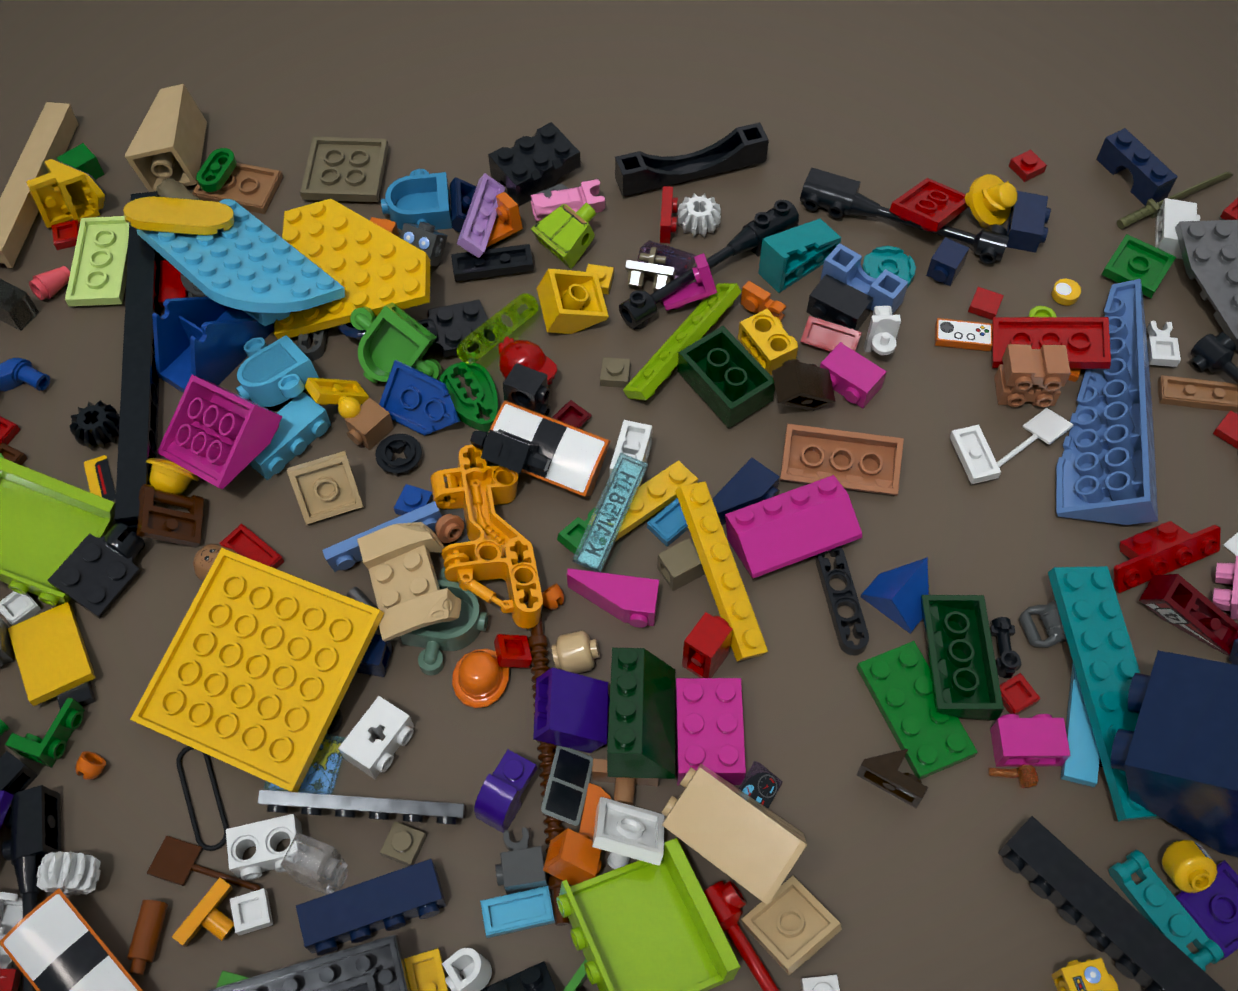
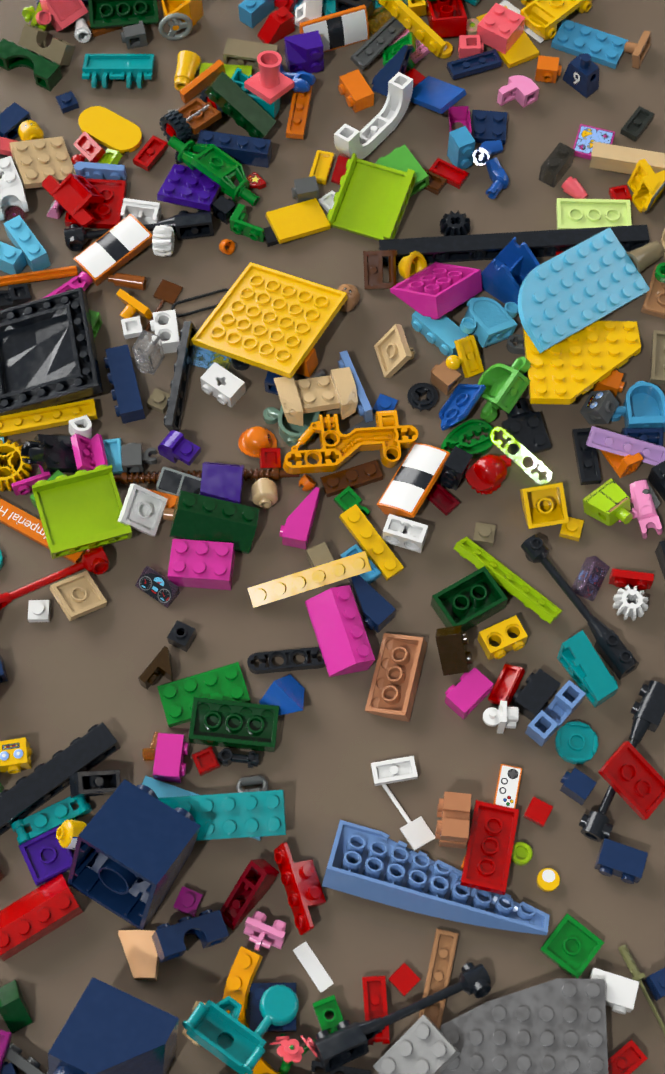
camera: 95 degrees right, 5 degrees up
(100, 478) = (426, 231): sticker -> none
(100, 569) = (348, 237): black plate -> none
(178, 215) = (615, 250): yellow tile -> none
(251, 546) = (356, 317): red tile -> none
(449, 528) = (357, 420): nougat plate -> none
(510, 451) = (407, 454): black piece -> none
(519, 945) = (88, 452): none -> dark pink bracket
(535, 528) = (353, 477): none -> reddish brown plate
(572, 857) = (131, 476): orange brick -> none
(610, 513) = (355, 512): clear light blue tile -> none
(638, 270) = (575, 559): hips -> none
(698, 290) = (555, 592): dark pink bracket -> none
(707, 646) = (254, 564): red brick -> none
(734, 832) = (130, 564): tan slope -> none
(757, 299) = (542, 634): orange plate -> none
(828, 758) = (184, 641): none -> black plate
(991, 200) = (641, 830): yellow plate -> none
(1108, 840) = (94, 783): none -> black brick
(1161, 347) = (483, 942): white plate -> none

